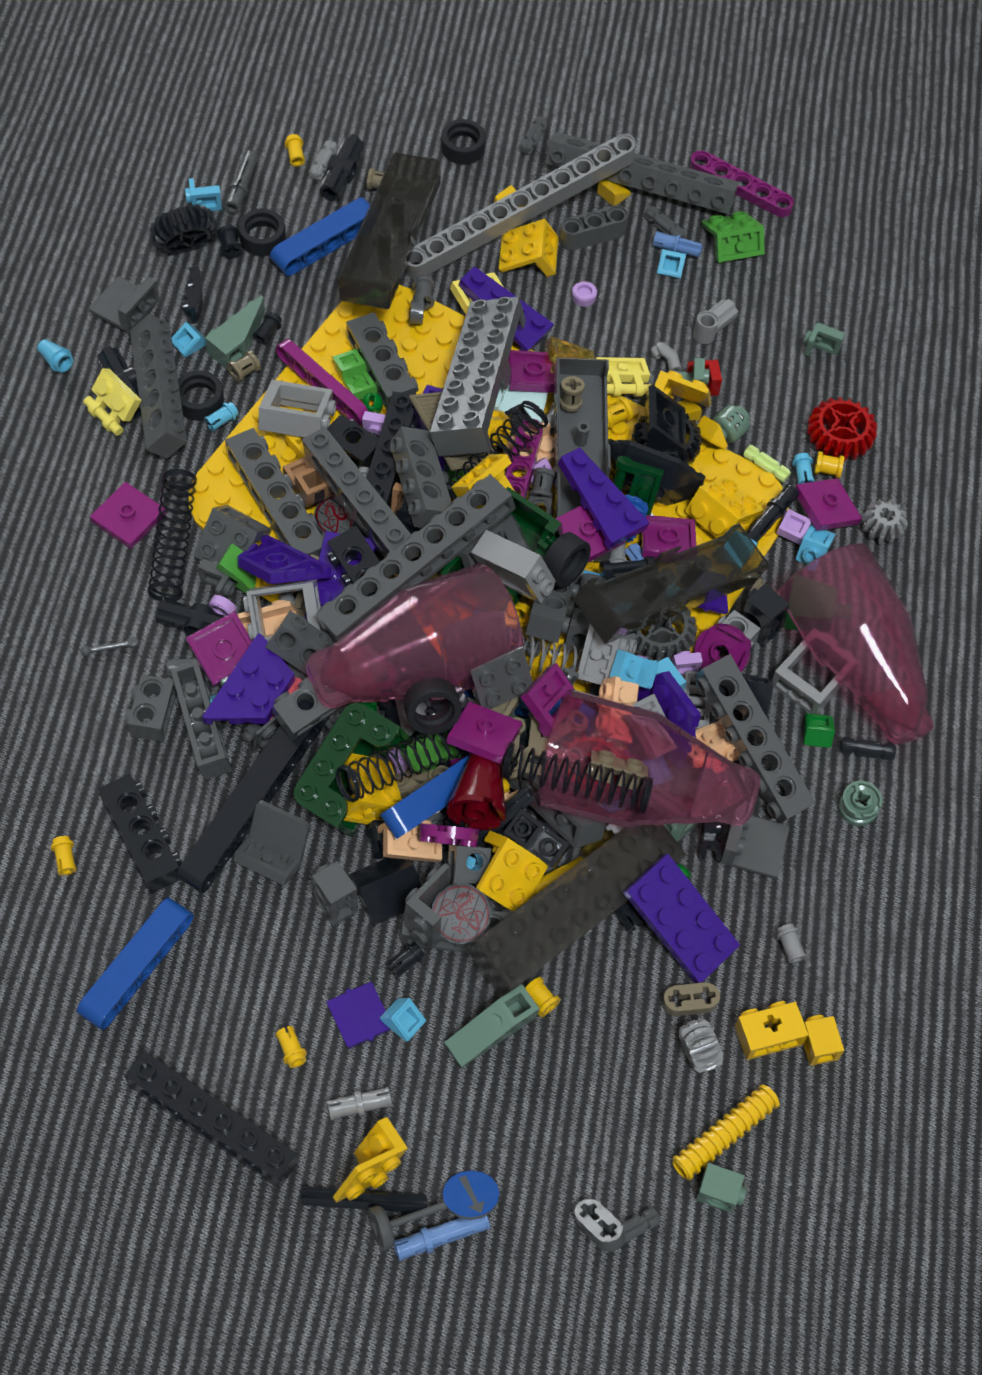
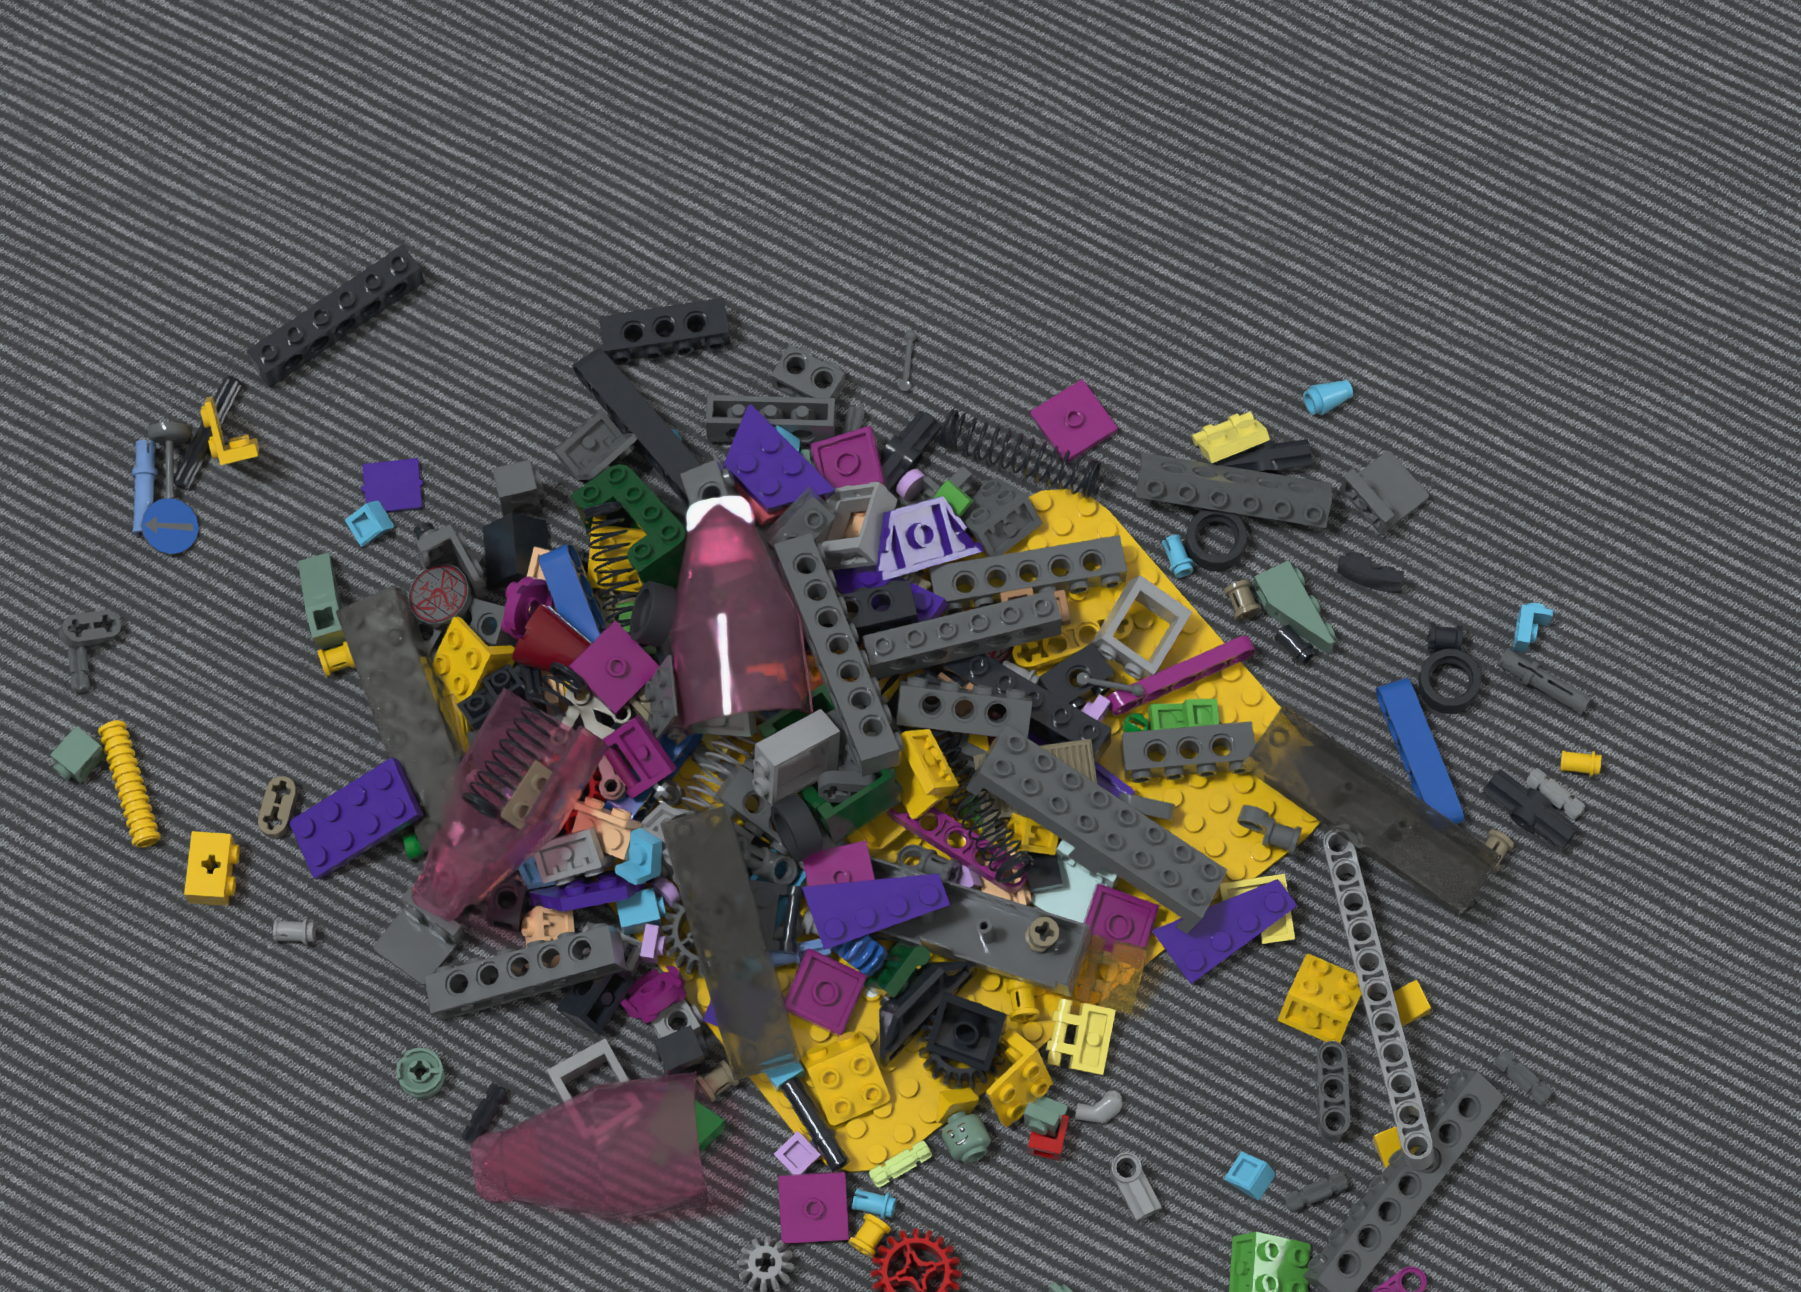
camera: 115 degrees right, 10 degrees up
(62, 848) = (669, 255): yellow pin -> none
(135, 963) = (525, 292): blue beam -> none
(183, 229) = (1462, 577): black gear -> none
(188, 339) = (1309, 554): medium azure slope -> none
(294, 1054) = (381, 410): yellow pin -> none
(354, 429) = (1083, 680): none -> dark grey hinge
(359, 1103) = (299, 455): light grey pin -> none
(436, 371) = (1149, 806): none -> dark grey beam
(463, 128) = (1545, 956): black tyre -> none
(584, 294) = (1234, 1045): lavender tile -> none
(677, 244) = (1274, 1191): medium blue axle -> none
(701, 1045) = (219, 787): light grey gear -> none
(814, 545) = (762, 1169): medium azure bracket -> none
(818, 730) = (529, 1072): green slope -> none
(823, 1040) = (180, 914): yellow brick -> none

